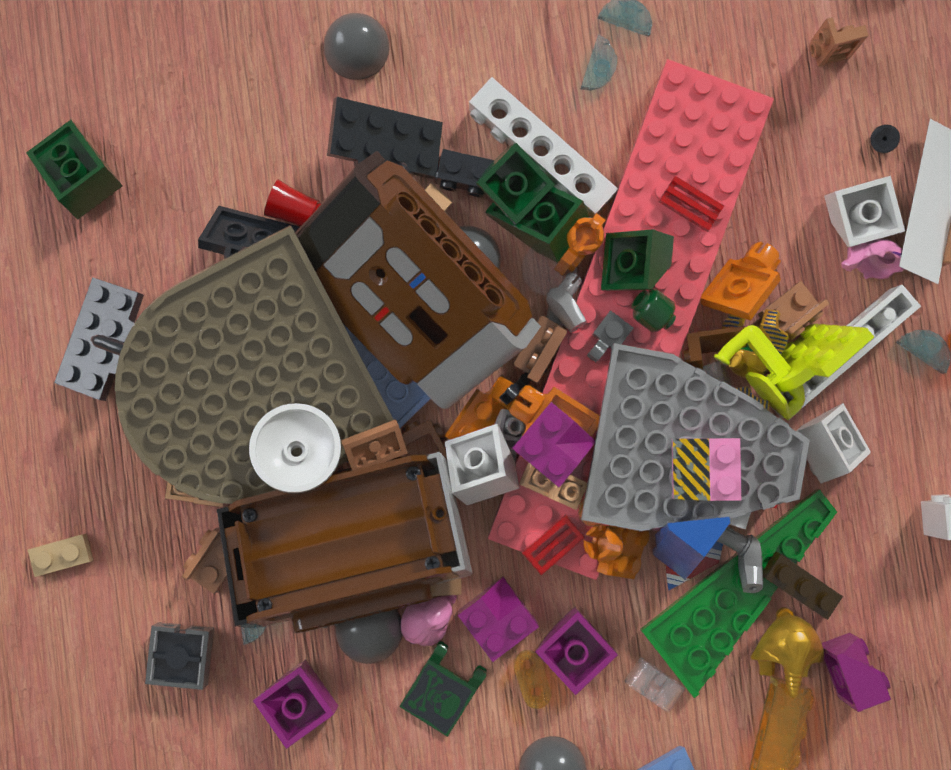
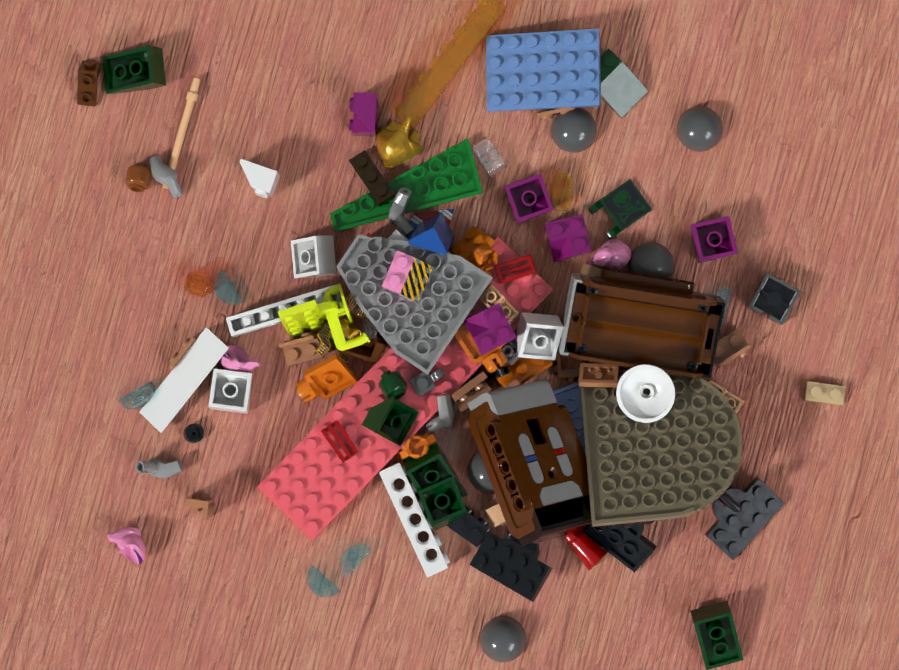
camera: 155 degrees left, 0 degrees up
(911, 72) = (159, 468): none -> light grey arm

